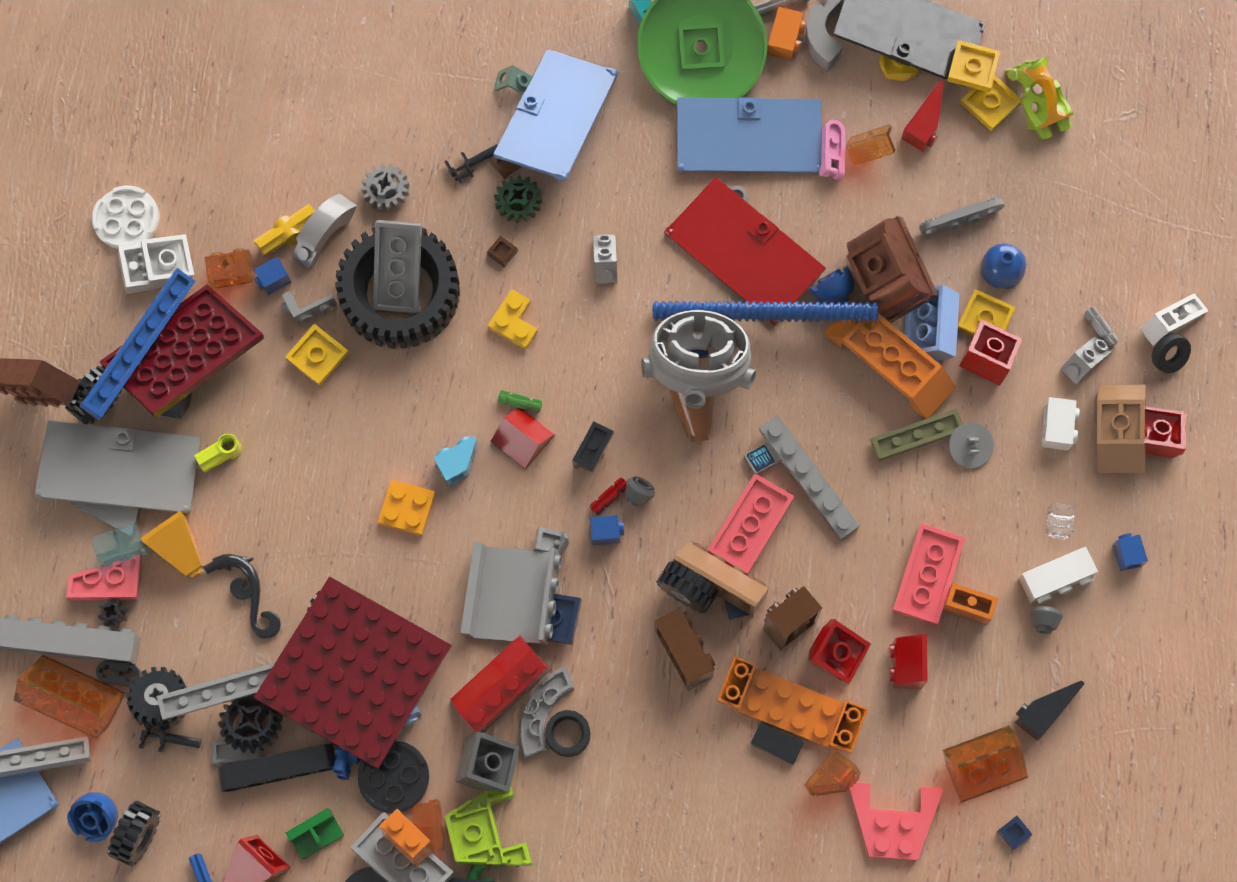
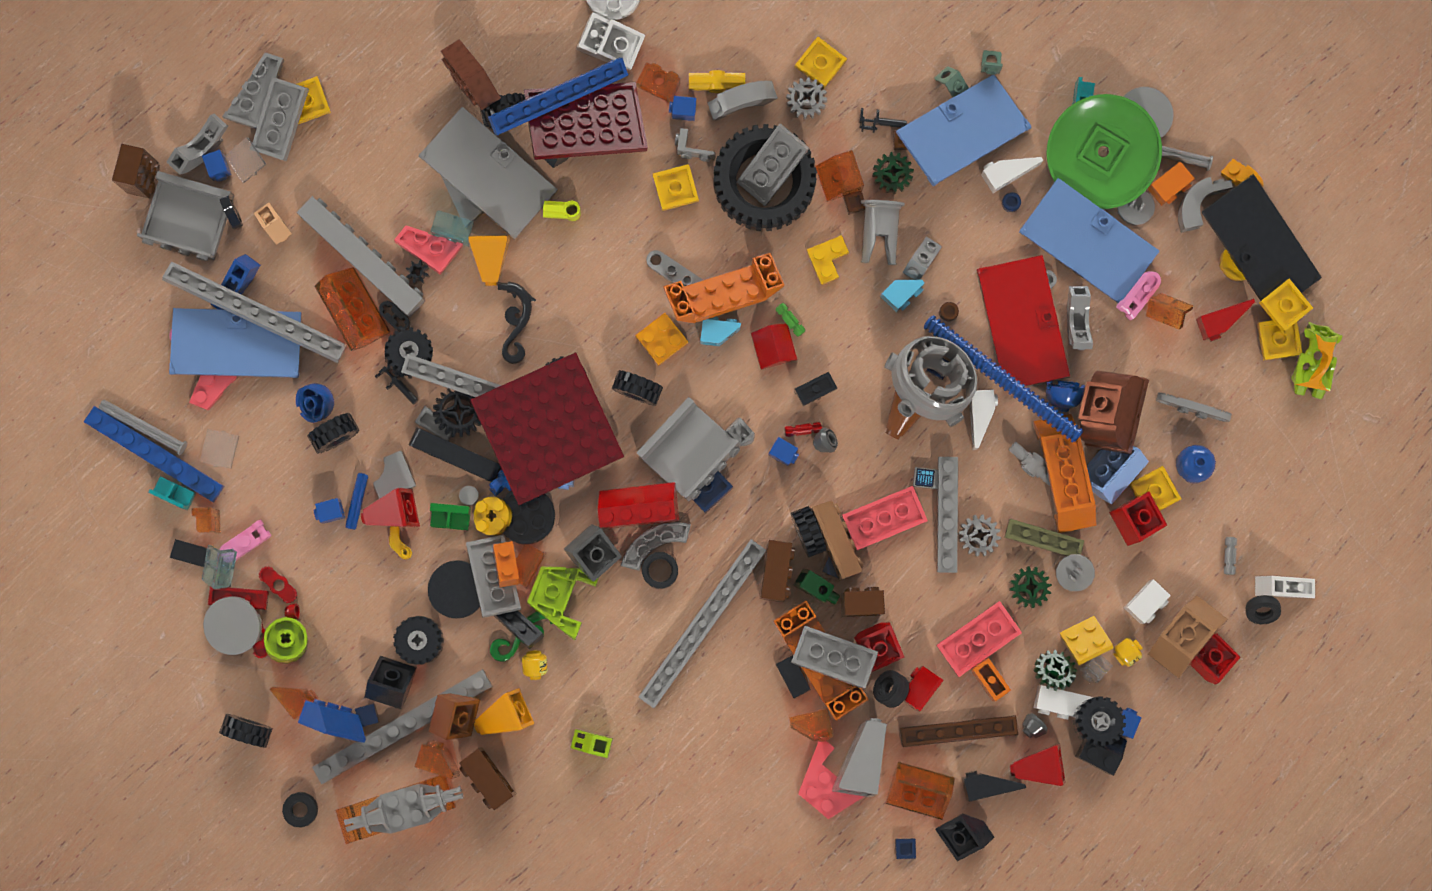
camera: 30 degrees right, 10 degrees up
(227, 831) = (395, 475): none -> light grey tile
(320, 798) = (469, 495): none -> light grey tile
(371, 802) = (484, 523): none -> yellow plate
(375, 146) = (820, 62): none -> yellow tile
(380, 435) = (671, 269): none -> light grey plate
(415, 568) = (637, 387): none -> black wheel
(438, 416) = (725, 292): none -> orange slope
(470, 235) = (839, 176): none -> clear orange slope
(538, 43) = (989, 67): none -> sand green bracket
(540, 250) = (881, 220): none -> light grey piece
(607, 302) = (900, 293): none -> medium azure slope
(625, 124) = (1007, 171): none -> white slope
(648, 757) = (702, 623): none -> light grey plate
(650, 150) = (1011, 202): none -> dark blue tile
(666, 289) = (949, 311): none -> reddish brown tile
(725, 636) = (810, 583): none -> dark green torso
(769, 361) = (981, 412): none -> white slope
(773, 78) = (1139, 210): none -> light grey piece
(792, 209) = (1078, 317): none -> light grey arch
(804, 691) = (834, 657): none -> light grey plate
(852, 372) = (1031, 462): none -> light grey pin
(861, 481) = (978, 527): none -> light grey gear
(892, 682) = (897, 694): none -> black tyre
(909, 773) = (863, 762): none -> light grey slope
(934, 482) = (1031, 596): none -> dark green gear
(977, 678) = (959, 731): none -> reddish brown tile
(1024, 550) = (1055, 670): none -> gear
(1031, 500) = (1086, 640): none -> yellow plate
(1062, 775) = (964, 835): none -> black slope
(1078, 483) = (1128, 652): none -> yellow head
(1082, 652) = (1041, 767): none -> red slope
(1085, 359) = (1201, 570): light grey bracket -> none
(1112, 557) = (1108, 721): none -> black wheel
(1126, 594) = (1103, 758): none -> black slope

